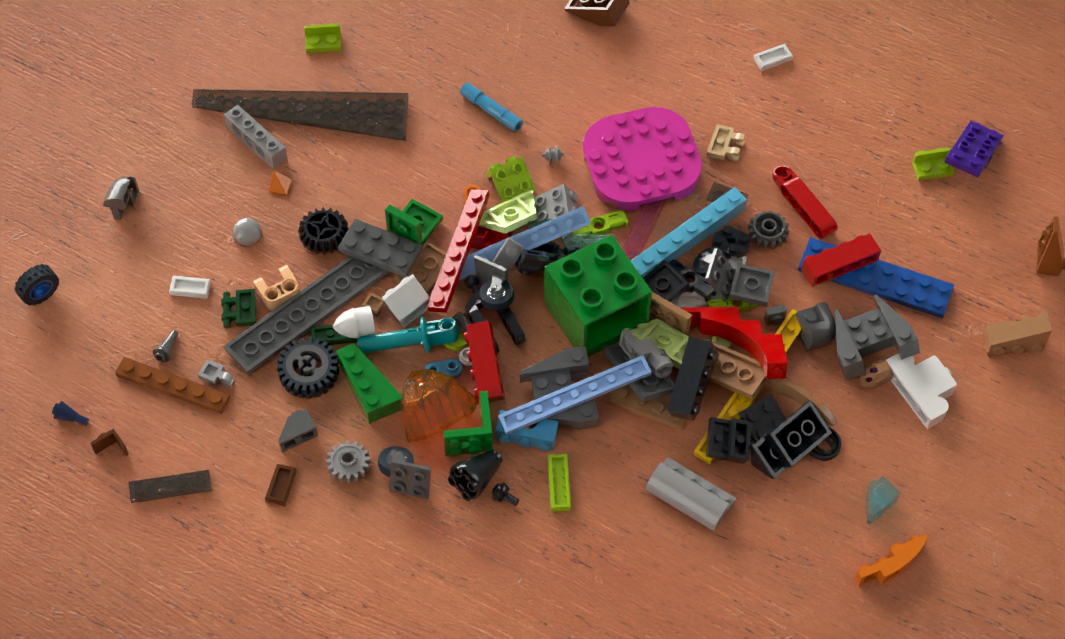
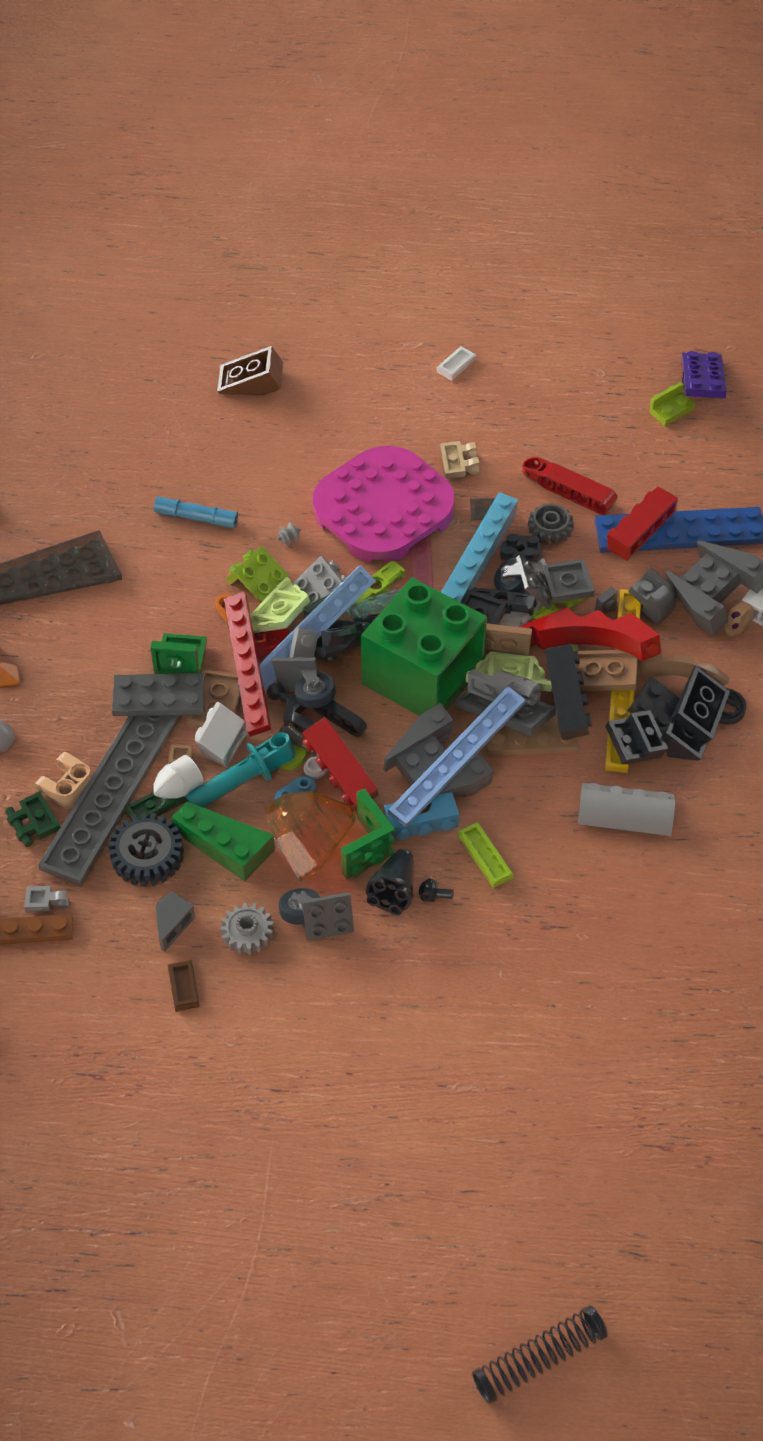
camera: 25 degrees left, 5 degrees down
(170, 486) = (56, 1041): clear smoke plate -> none
(319, 225) = (69, 702): black gear -> none

